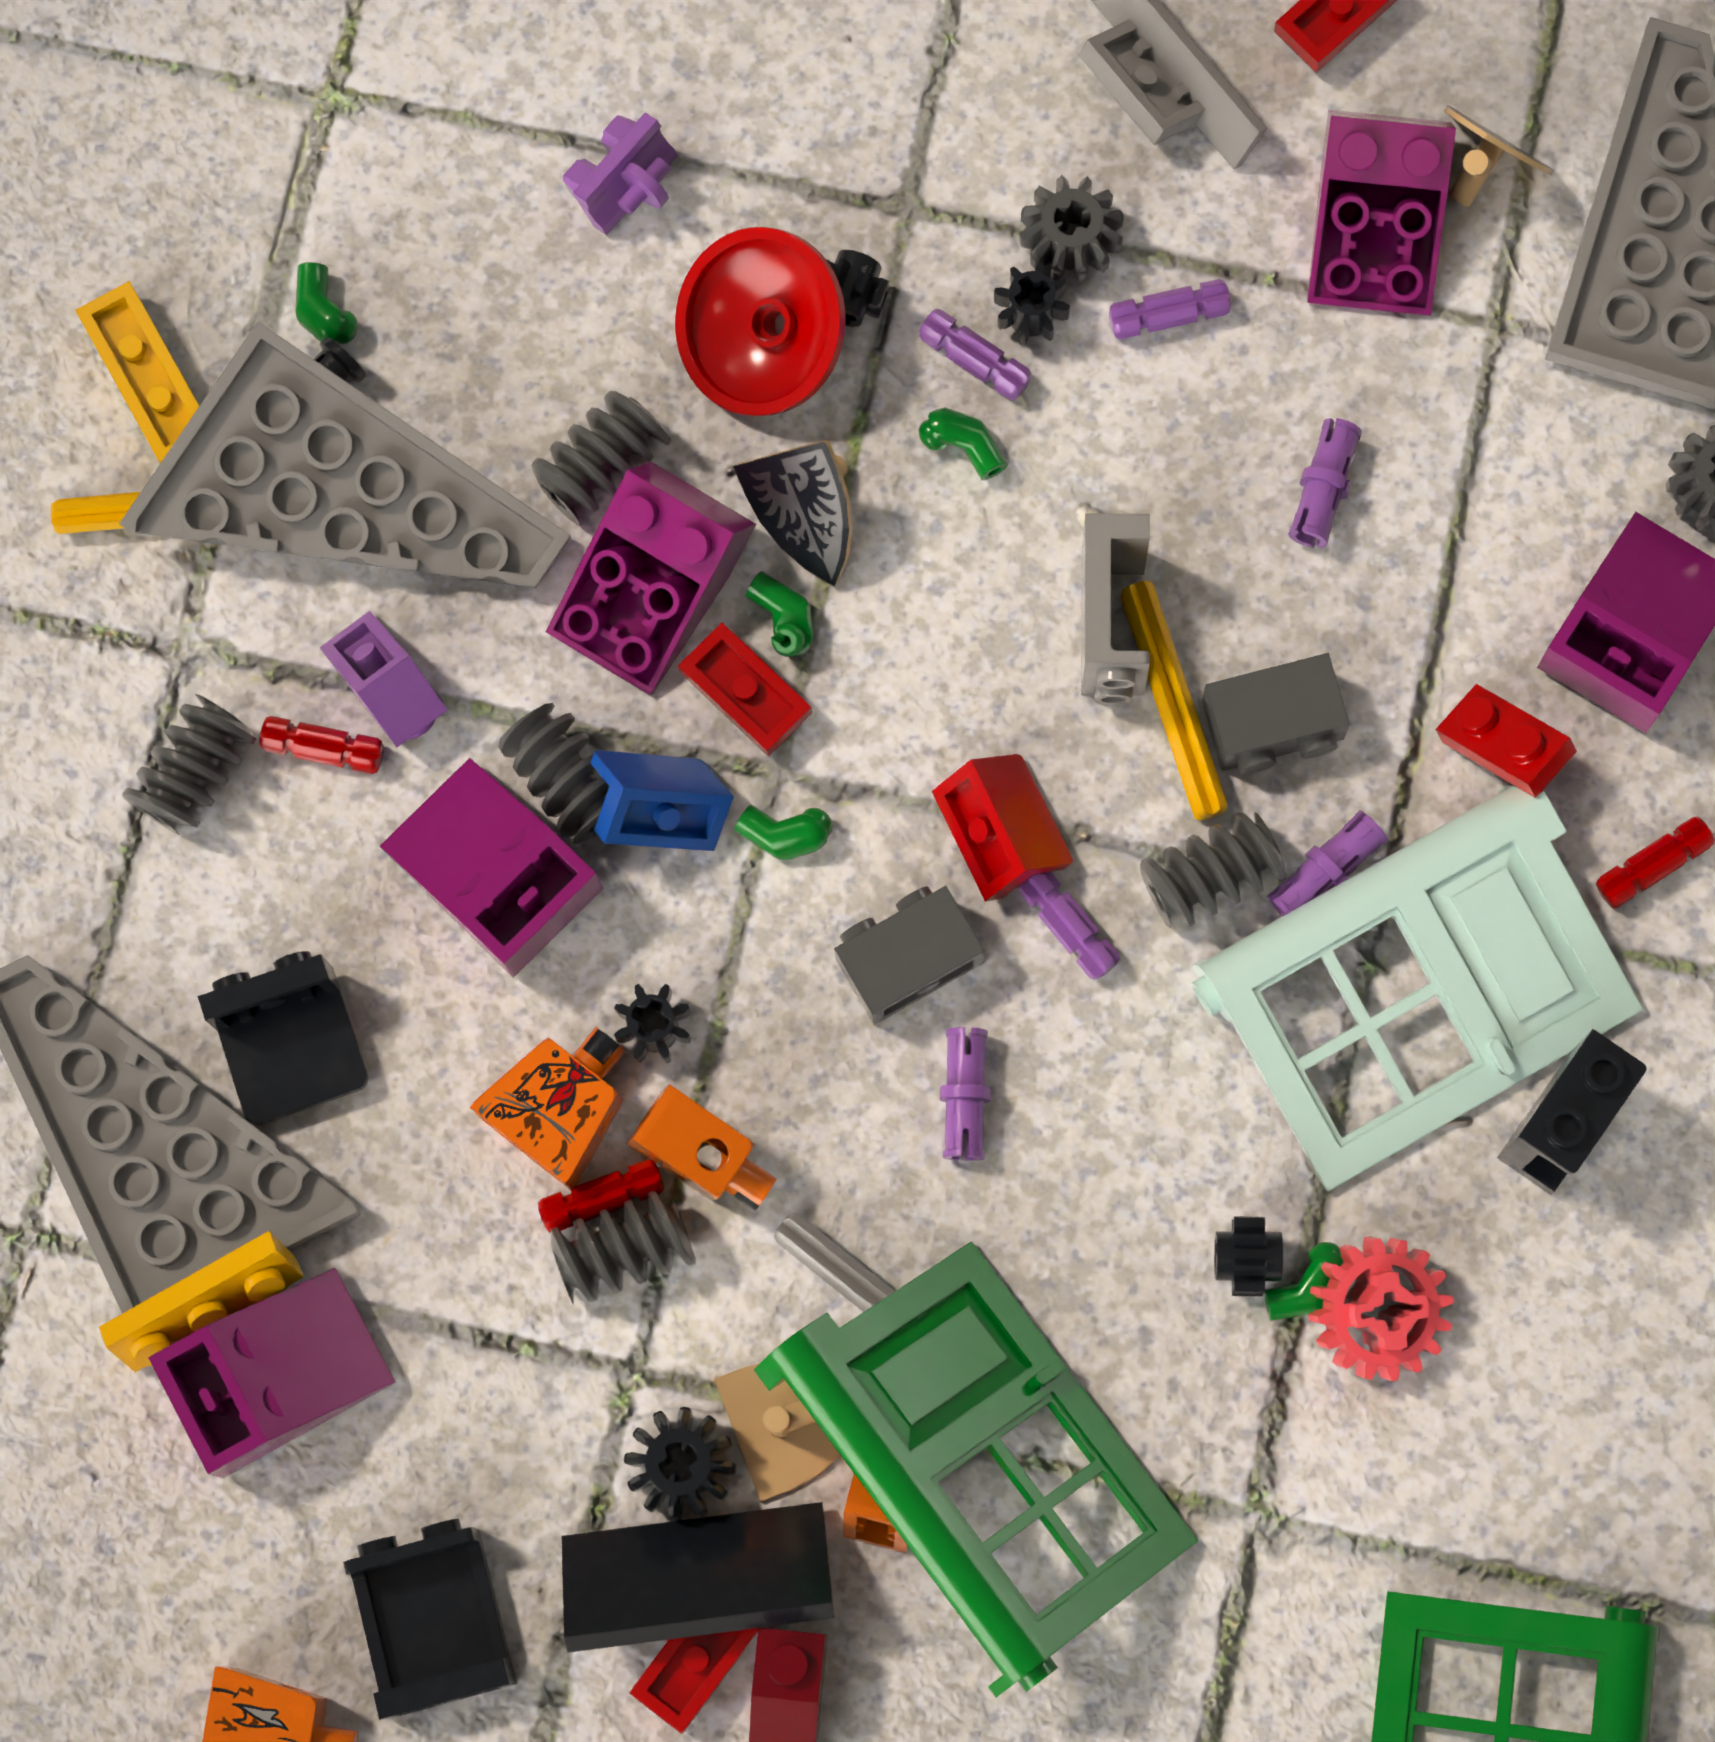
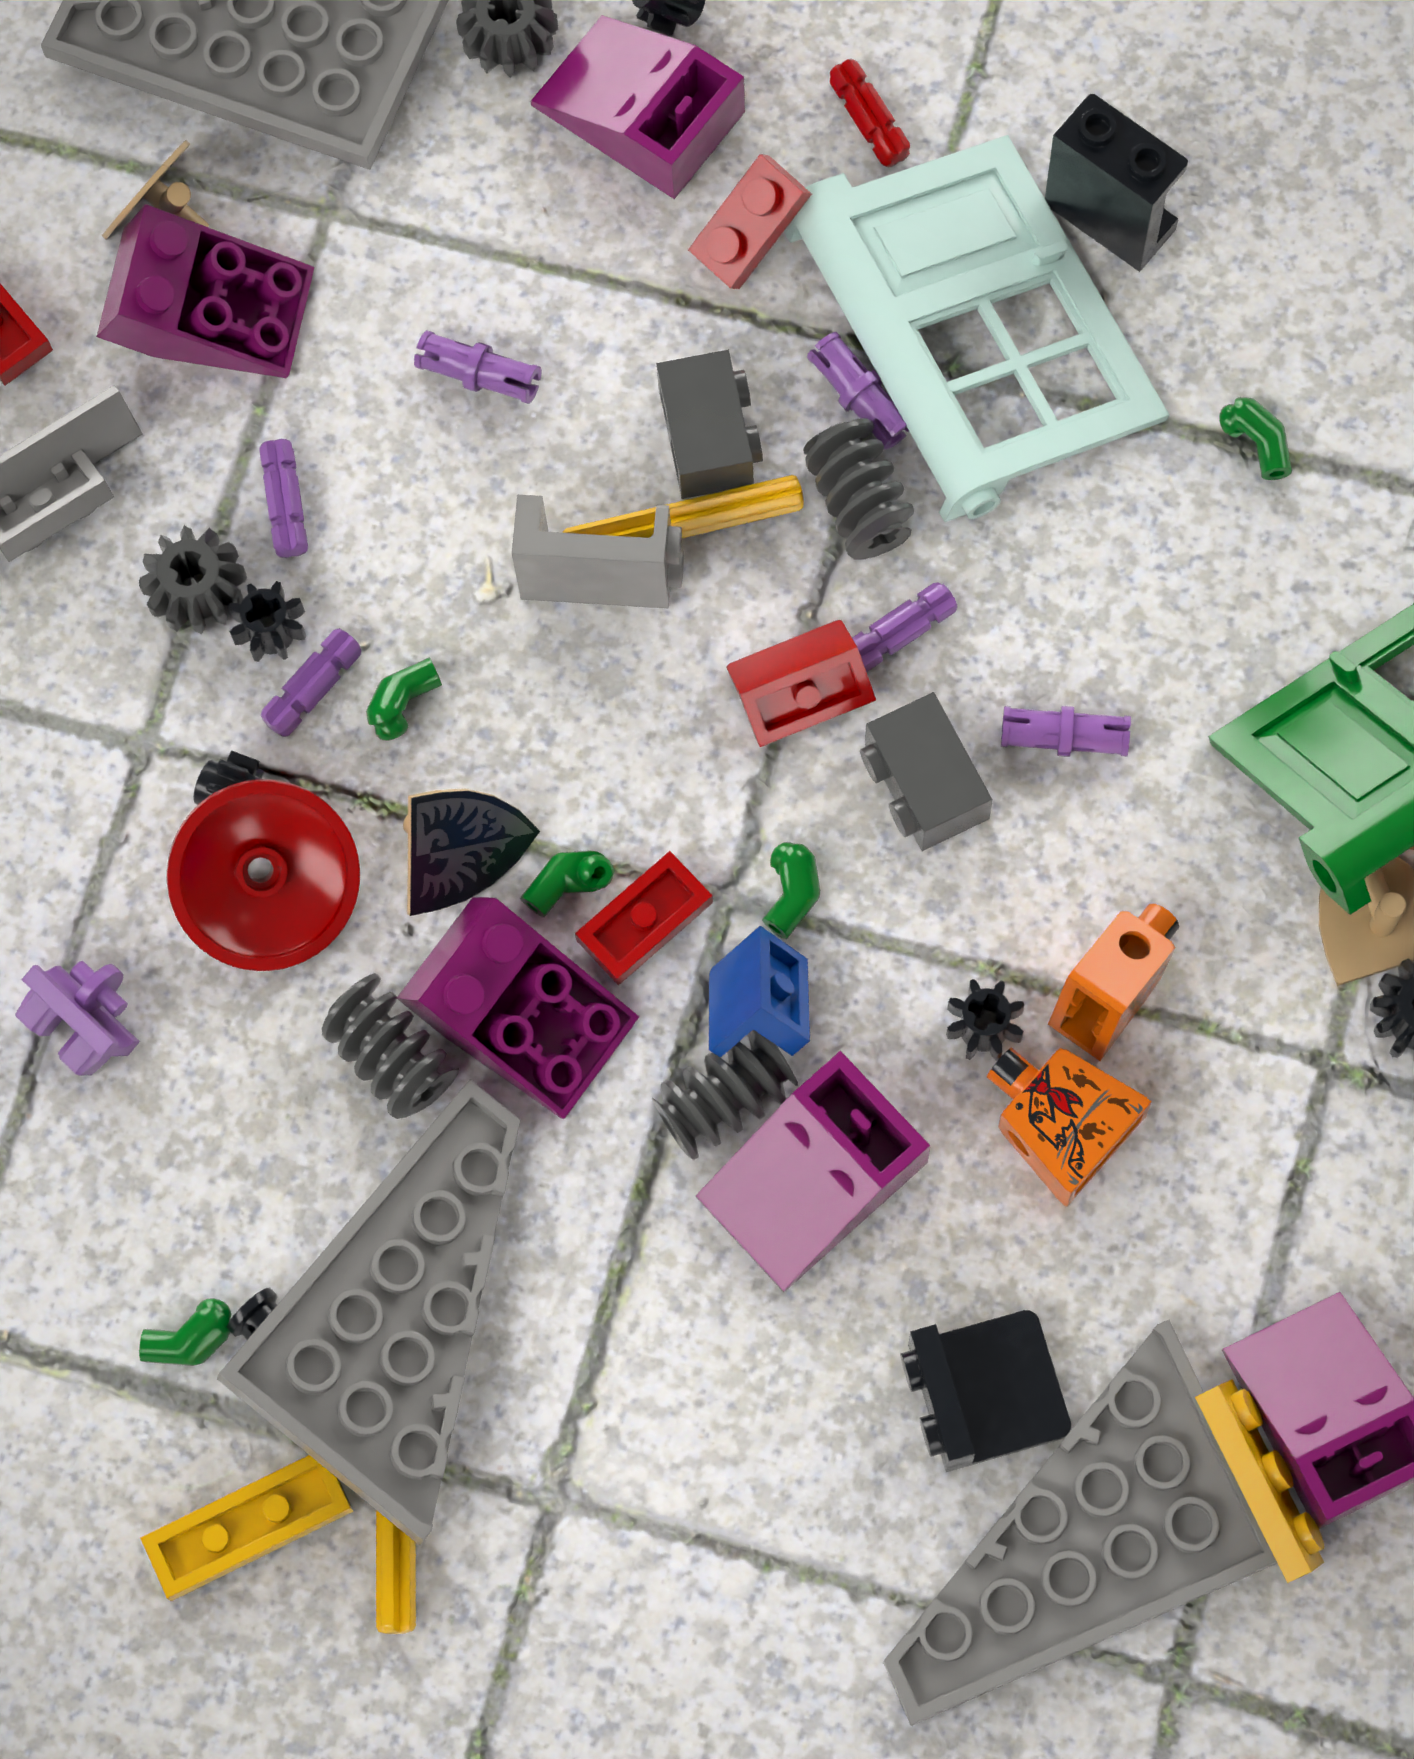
camera: 90 degrees left, 5 degrees down
(189, 764) = (688, 1482): dark grey piece -> none
(321, 744) = (670, 1349): red axle -> none
(384, 679) = (605, 1278): medium lavender slope -> none
(599, 1194) = (1155, 1082): red axle -> none
(621, 1247) = (1210, 1059): dark grey piece -> none
(831, 1262) = (1234, 858): light grey axle -> none
(1248, 1256) = (1234, 480): black gear -> none
(1373, 1283) = (1286, 368): coral gear -> none

